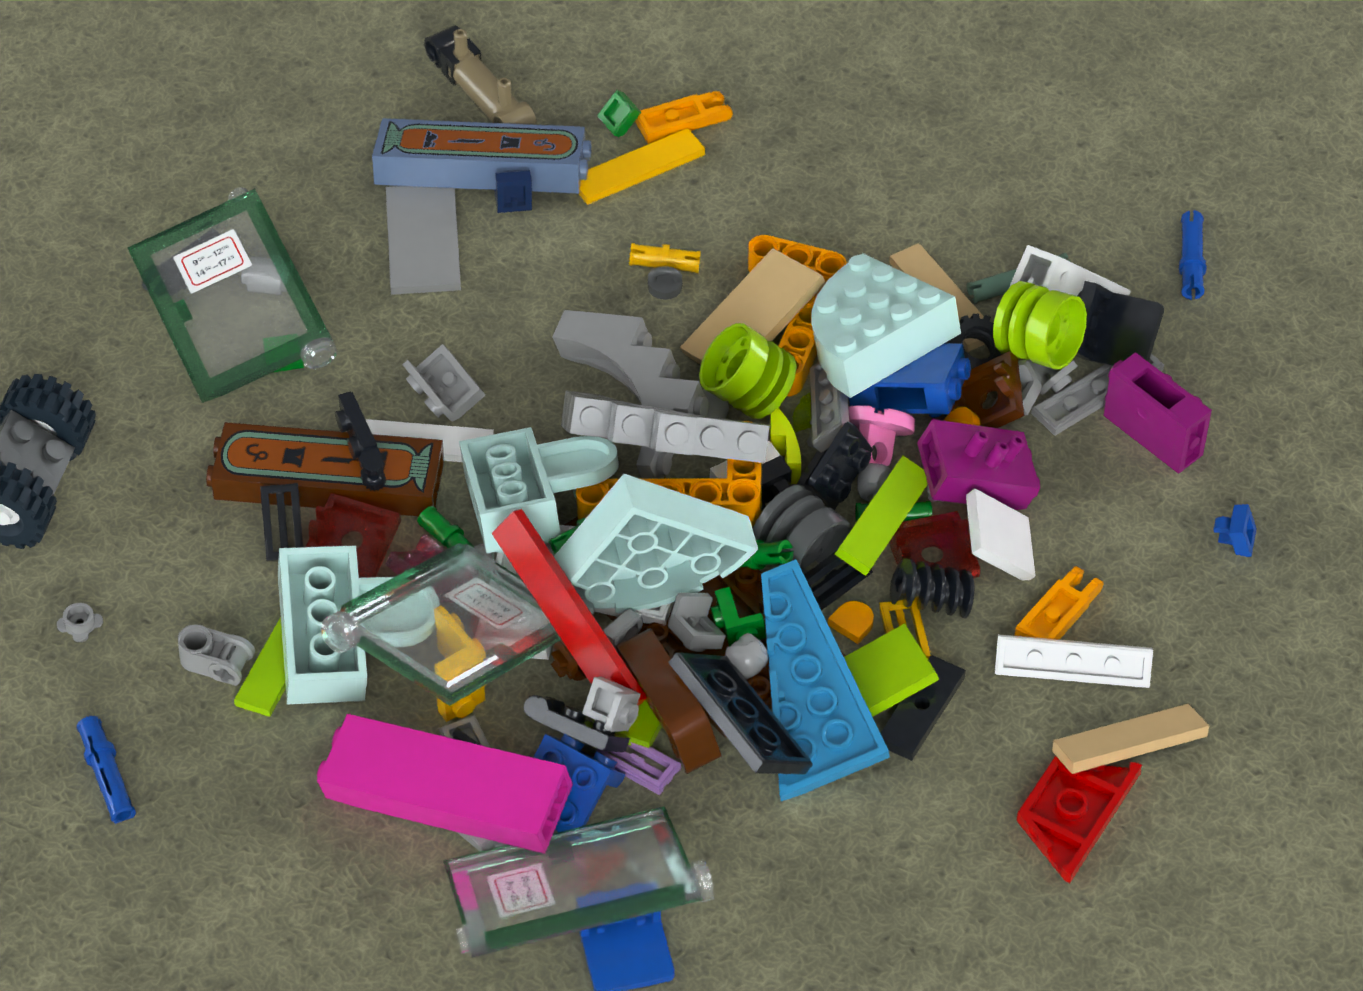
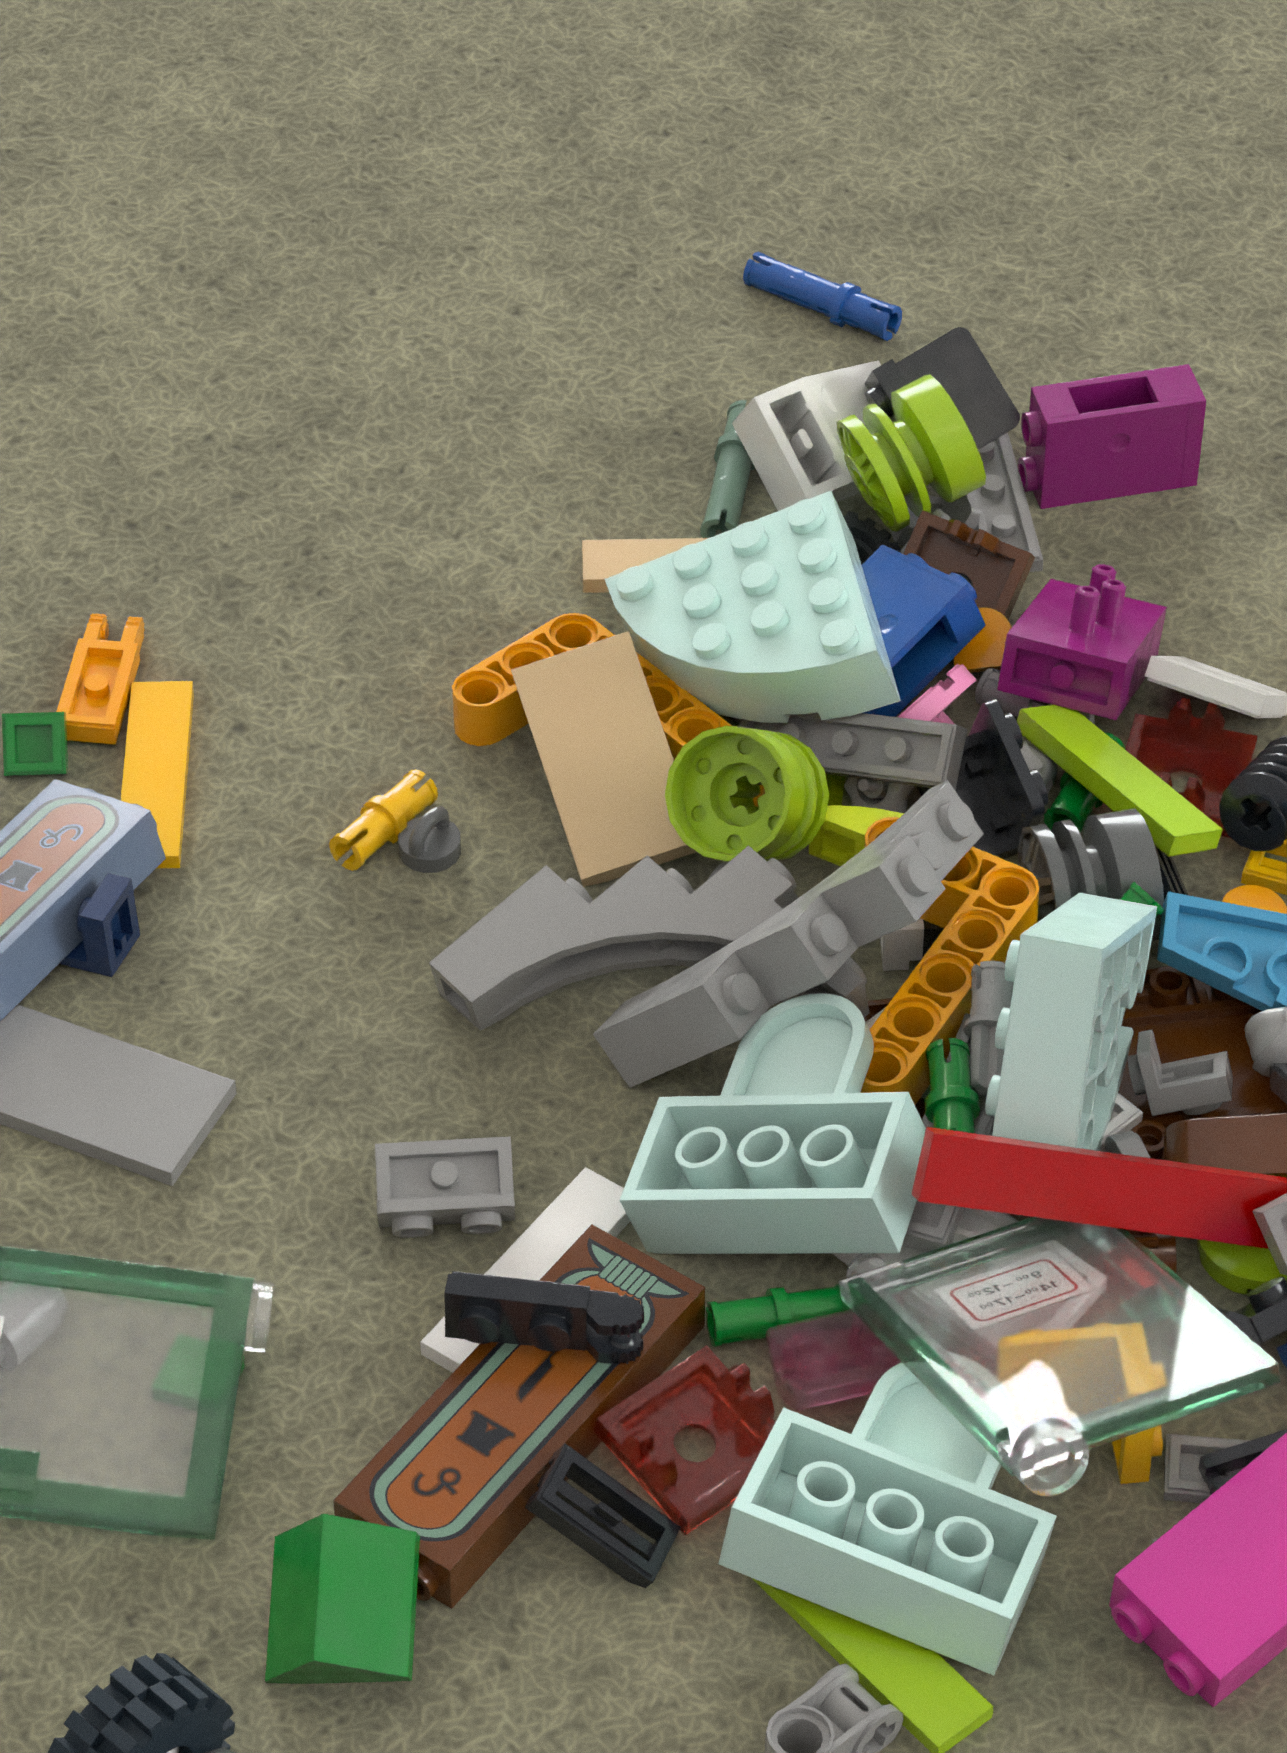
camera: 60 degrees left, 5 degrees down
(174, 454) = (342, 1603): none -> green slope
(726, 617) = (1192, 1031): green bracket -> none

